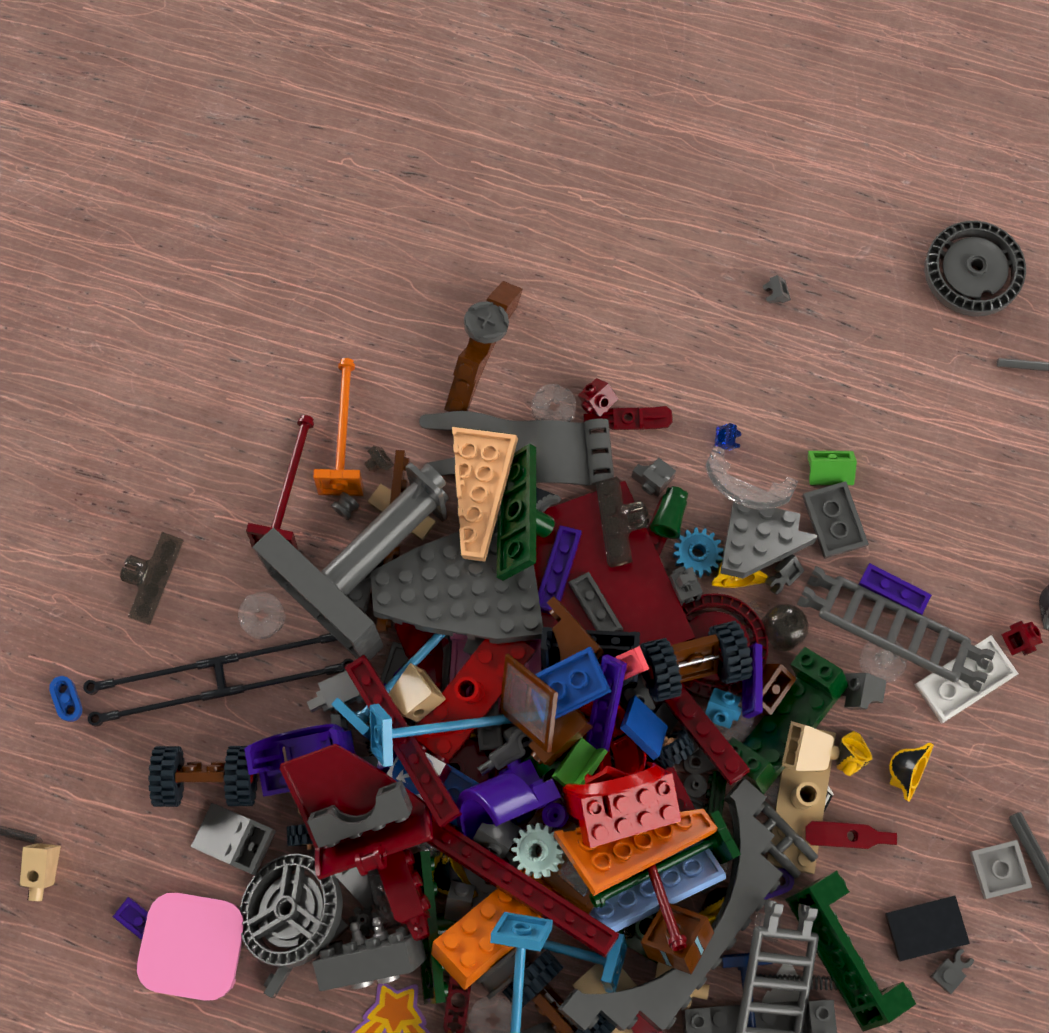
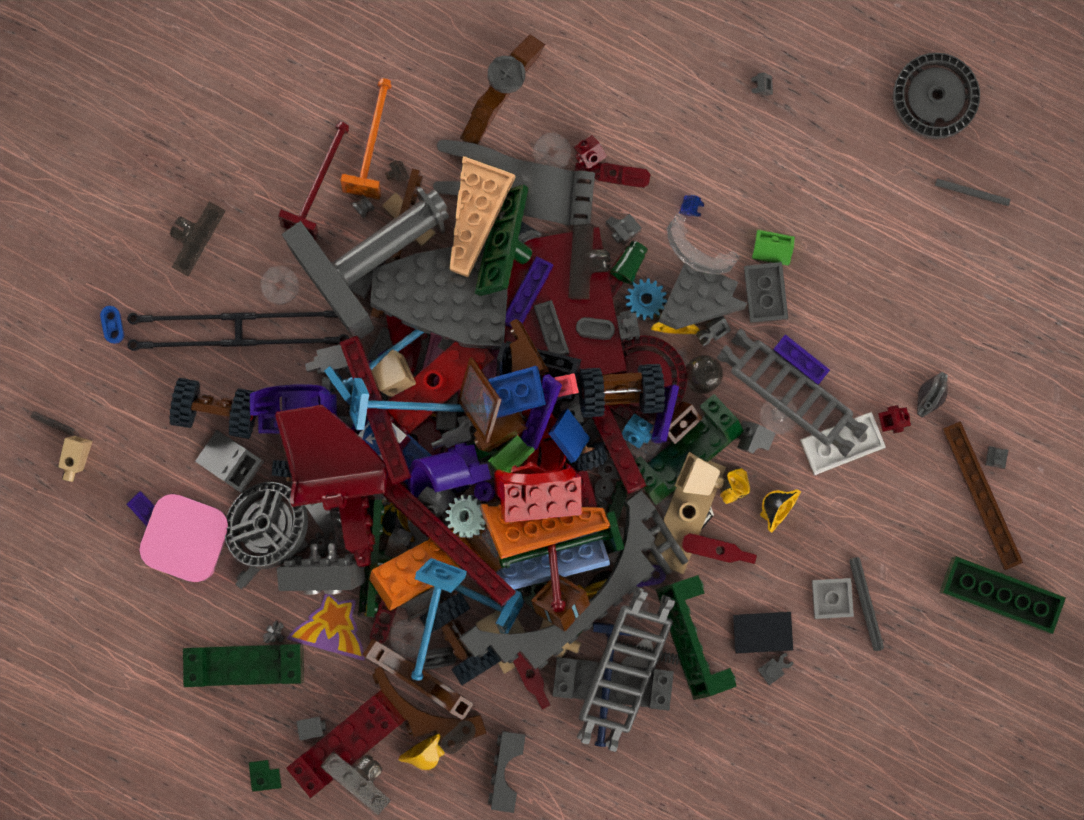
camera: 10 degrees right, 10 degrees up
(333, 825) = (308, 466): dark grey arch -> none
(647, 595) = (595, 328): none -> dark grey tile

